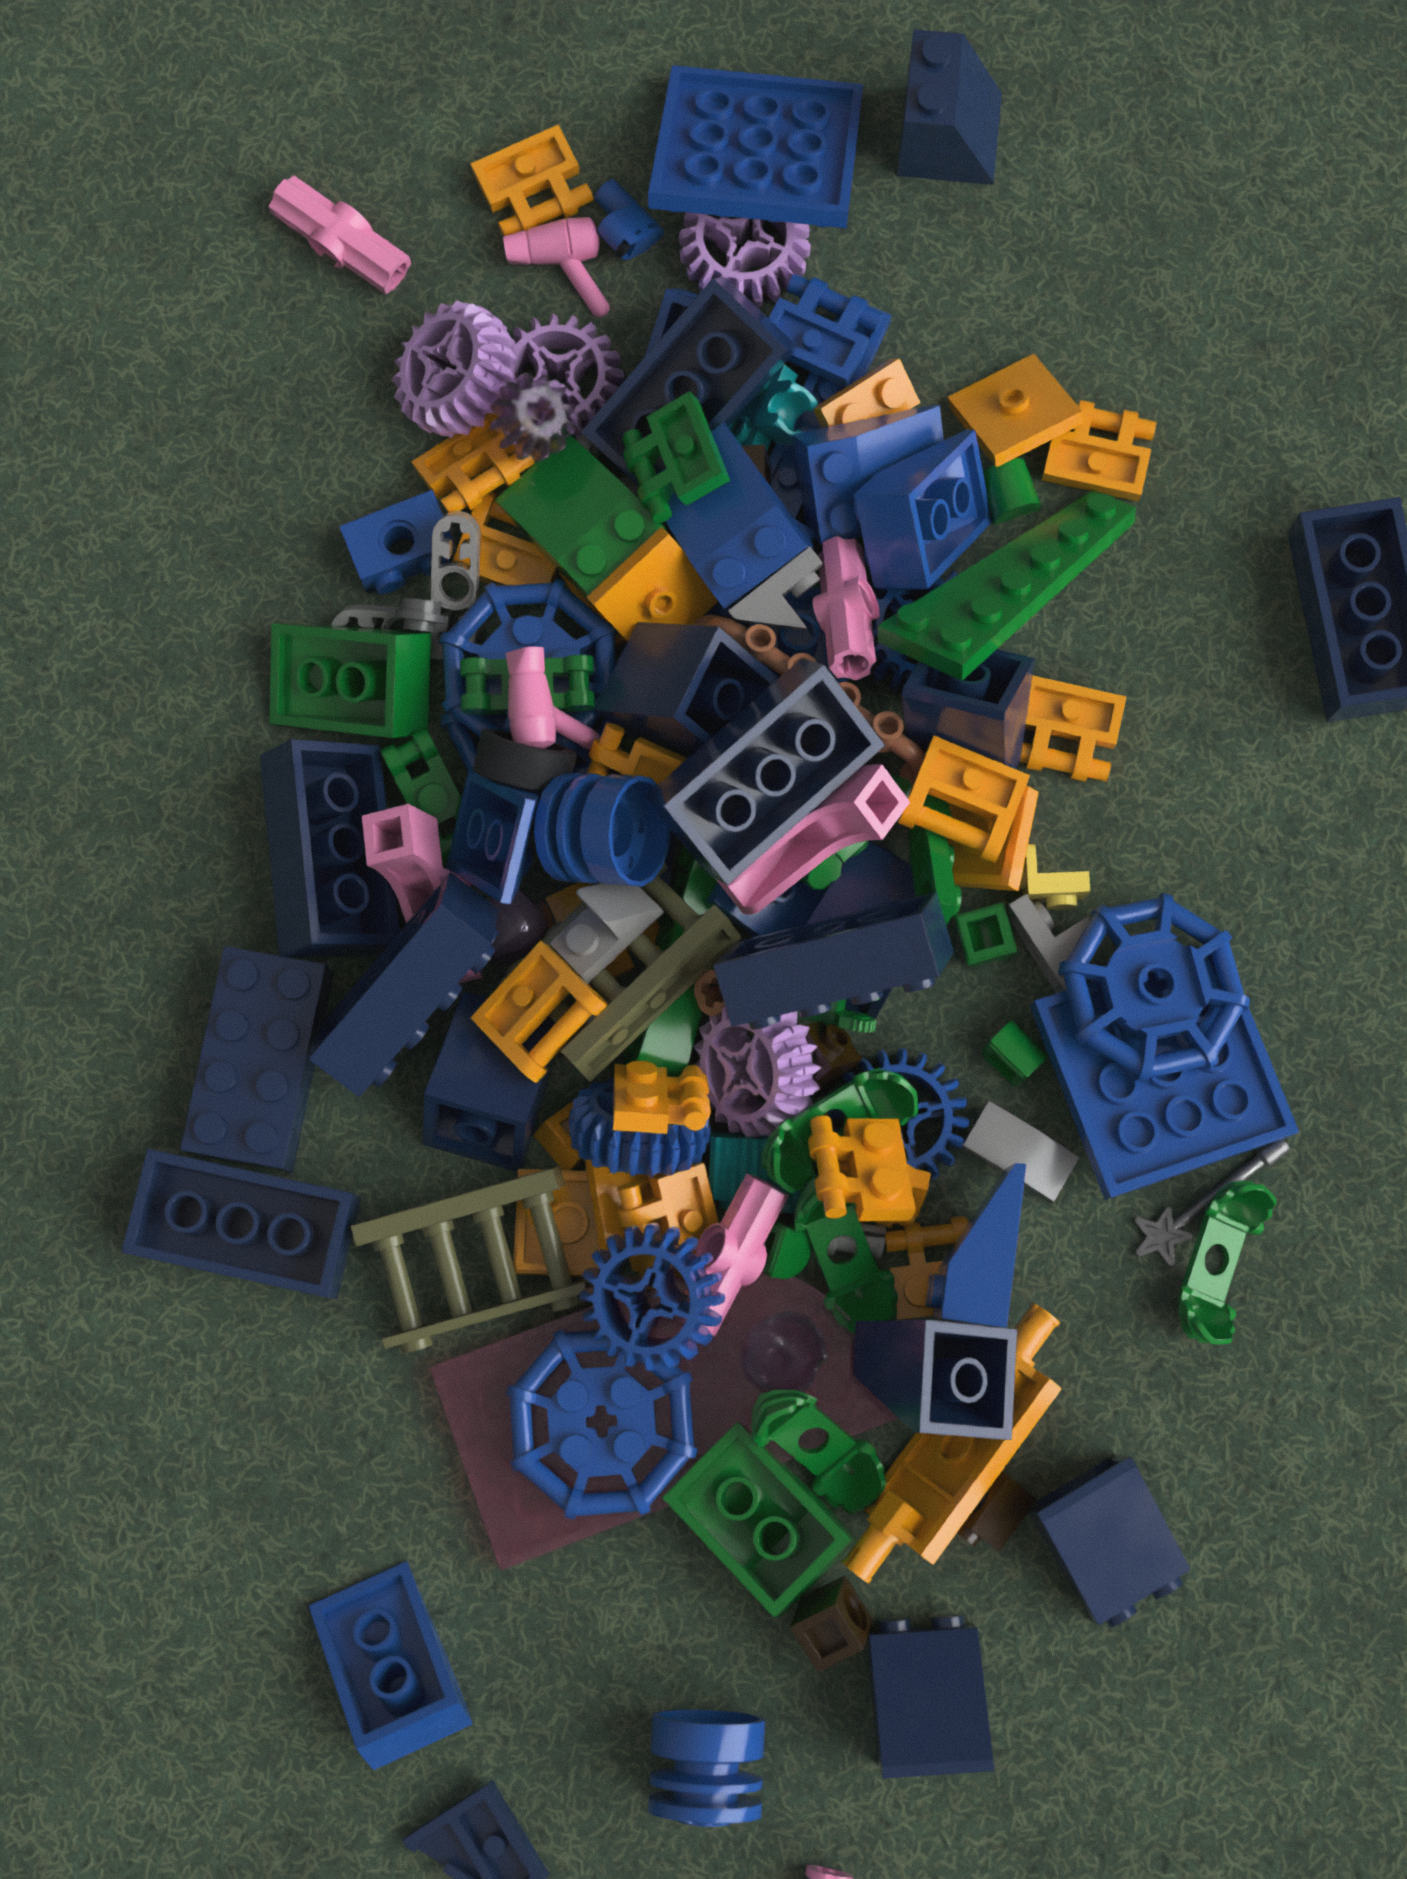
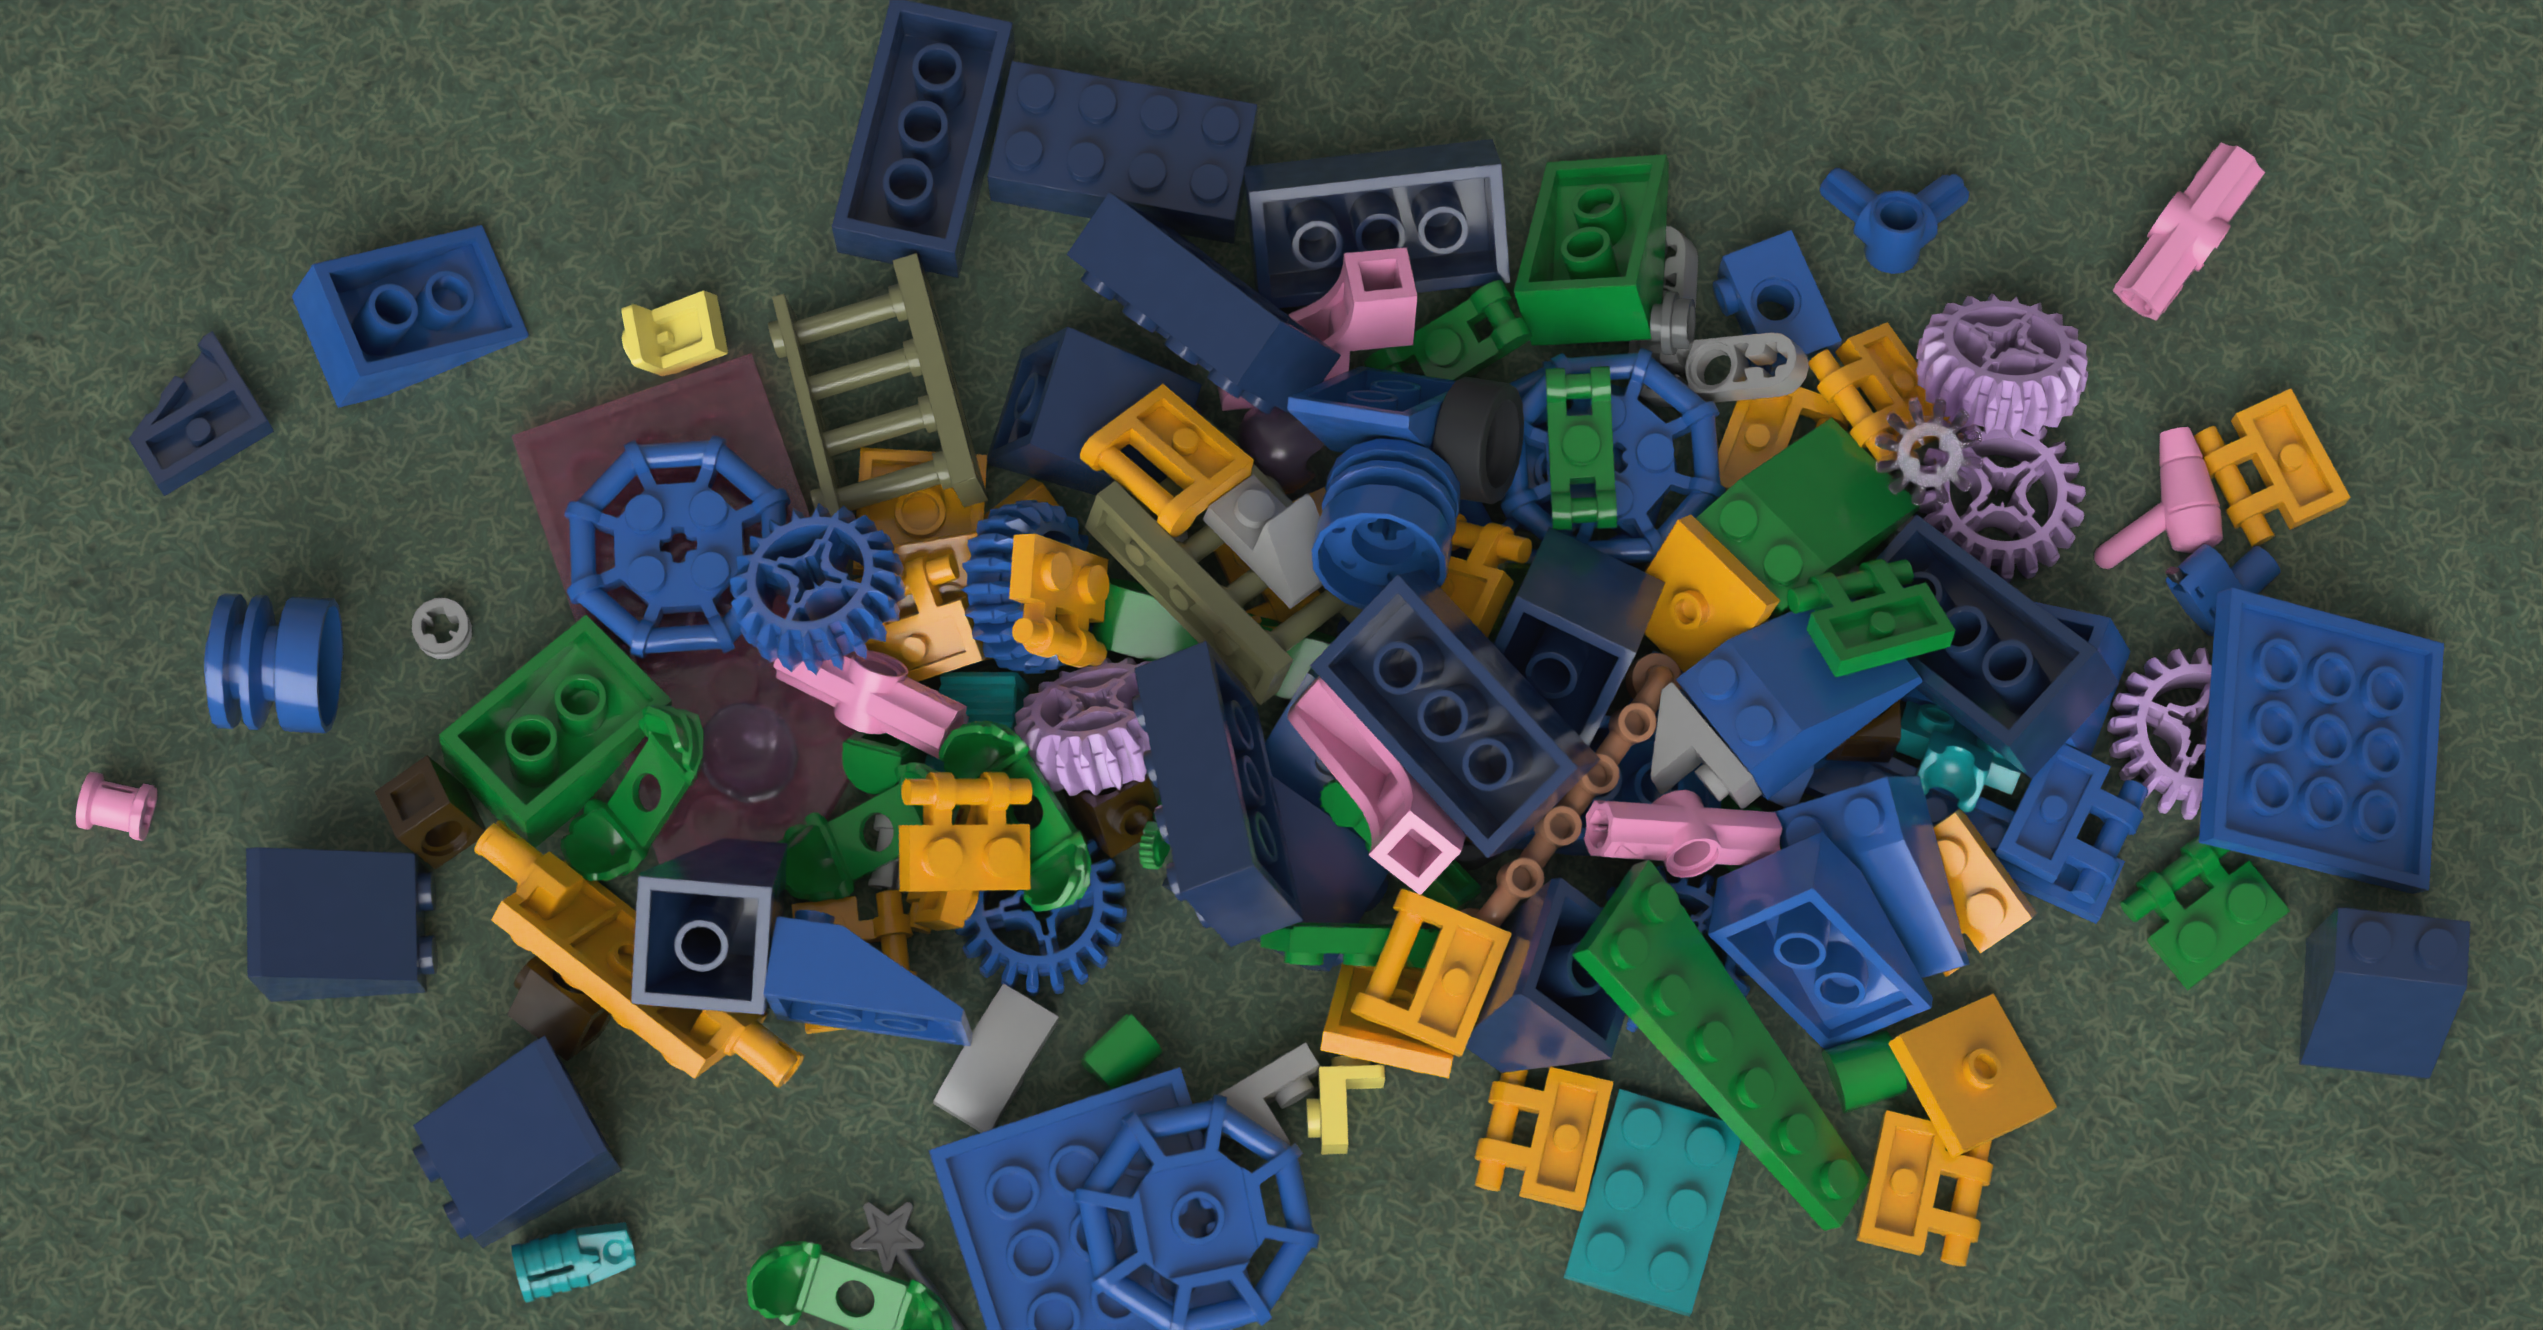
camera: 85 degrees right, 5 degrees down
(325, 464) = (1897, 221): none -> blue axle
(411, 1433) = (674, 334): none -> light yellow bracket
(531, 708) = (1540, 444): bright pink piece -> none
(679, 1632) = (428, 642): none -> light grey bush
(889, 236) = (2217, 923): none -> green plate
(986, 935) = (1271, 1020): green brick -> none
(1117, 647) = (1653, 1203): none -> teal plate
(1194, 1490) = (572, 1259): none -> teal hinge

